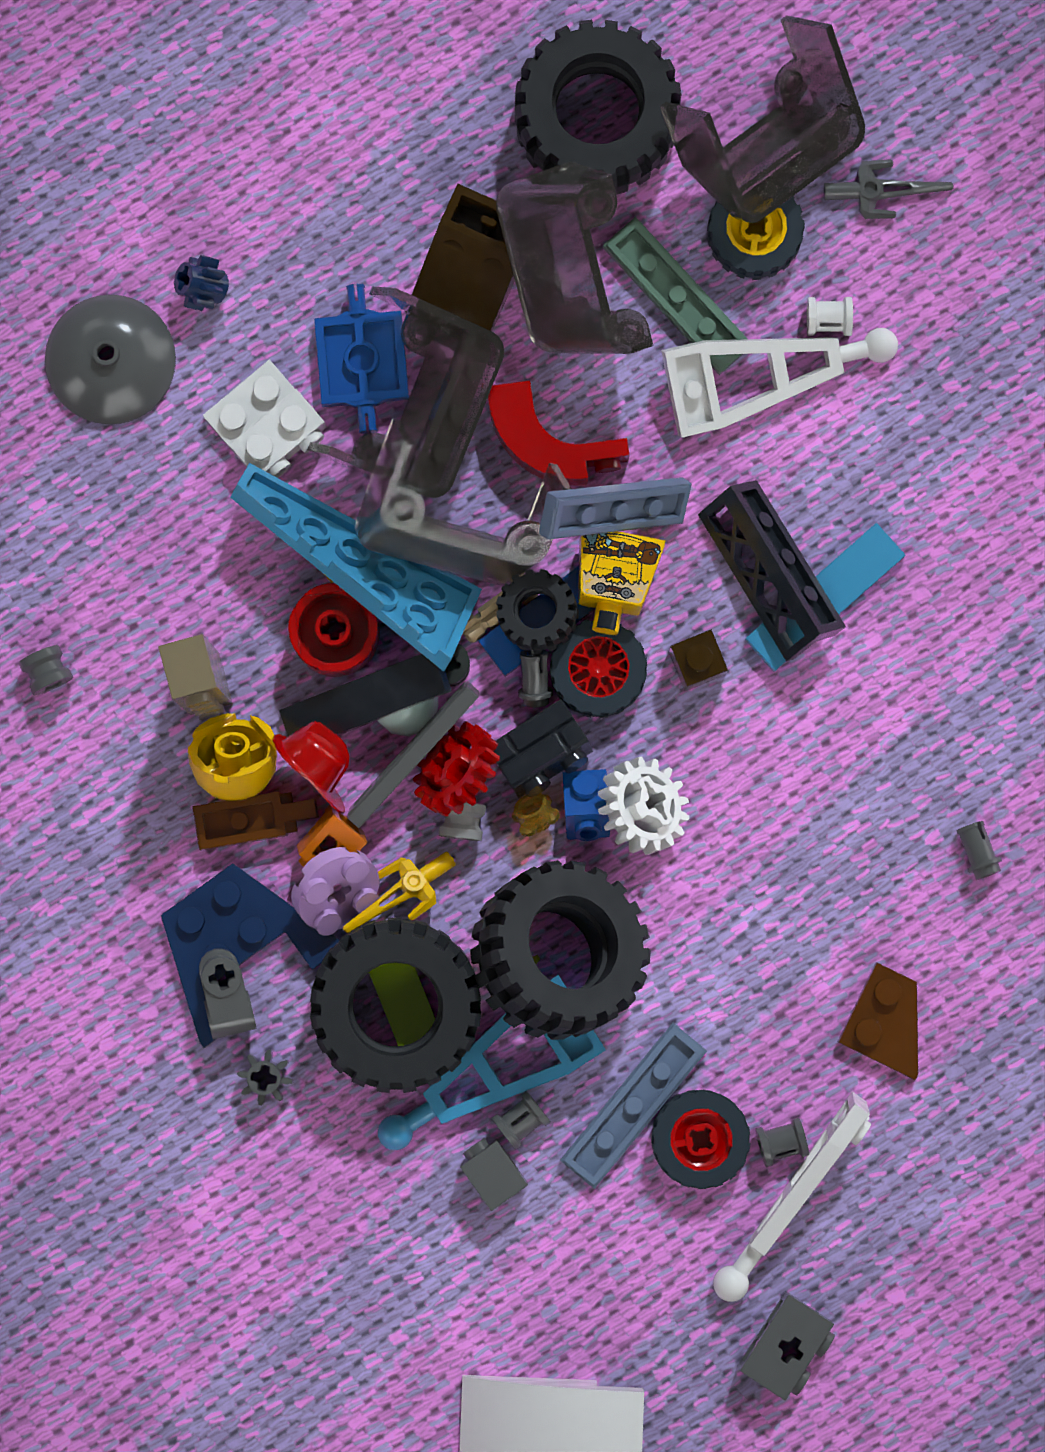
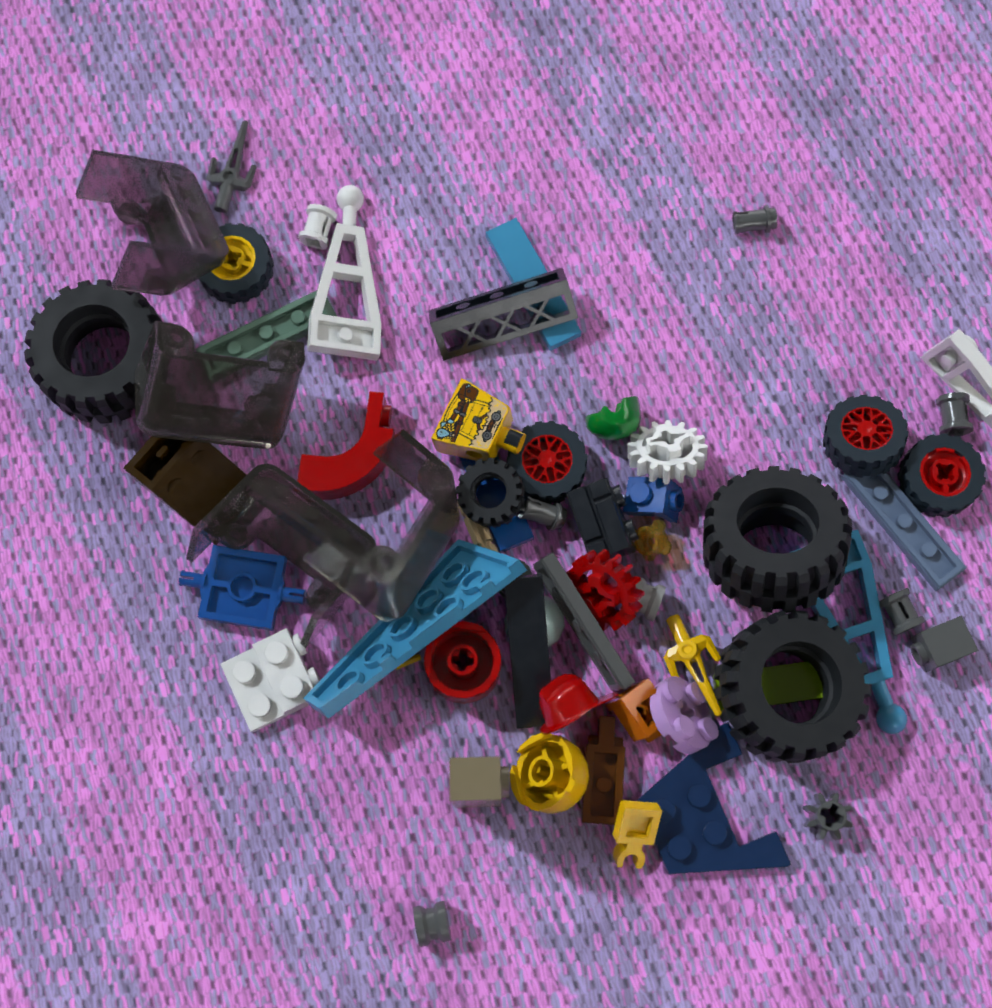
camera: 75 degrees left, 10 degrees down
(129, 381) = (204, 805): dark grey dish -> none
(199, 864) = (635, 827): none -> yellow plate
(201, 283) = (138, 703): dark blue gear -> none
(227, 1000) = (756, 832): dark grey piece -> none
(614, 508) = (425, 409): sand blue tile -> none
(663, 739) = (616, 424): none -> green hair
(698, 660) = (560, 383): dark brown brick -> none
(724, 1037) = (865, 436): none -> black wheel
(885, 1021) = (871, 318): reddish brown wing -> none

